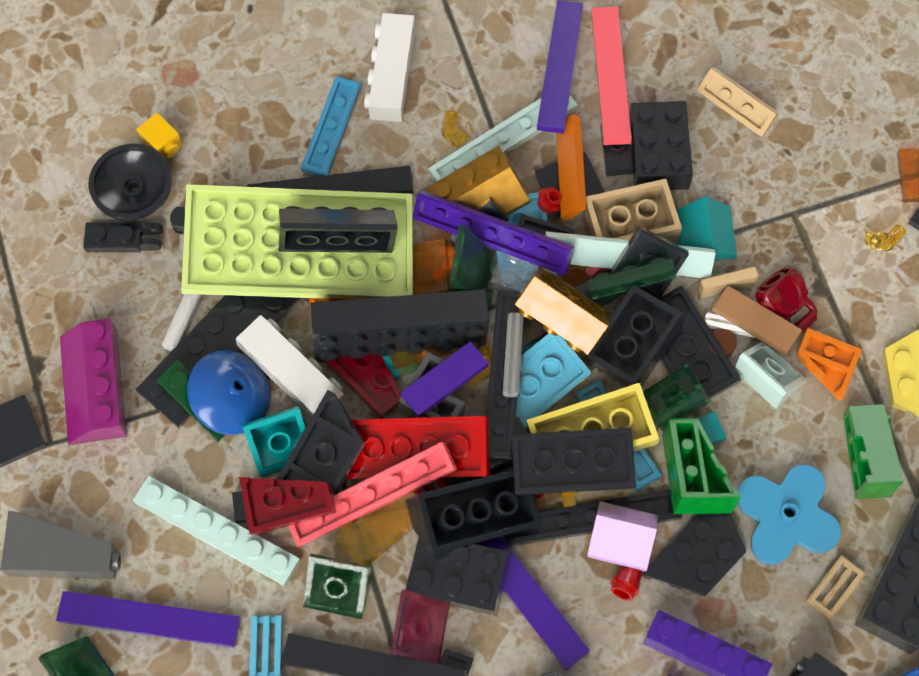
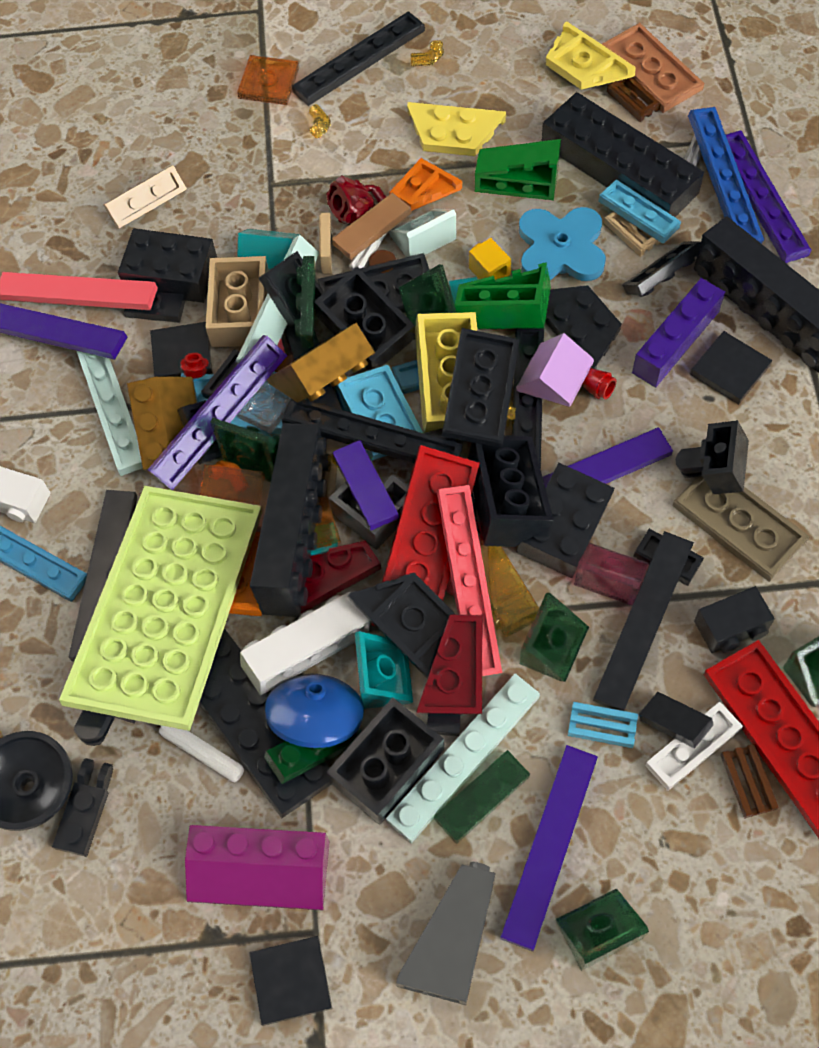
camera: 75 degrees left, 5 degrees down
(183, 553) = (482, 796): none -> clear green plate
(194, 462) = (386, 760): none -> black brick
(336, 230) = (168, 552): black slope -> none
(449, 130) = (82, 446): clear yellow arm -> none
(513, 354) = (357, 416): light grey axle -> none
(571, 169) = (170, 338): orange tile -> none
(746, 446) = (489, 260): none -> yellow brick
(786, 625) = (662, 269): none -> black plate
(855, 589) = (639, 211): none -> medium azure tile

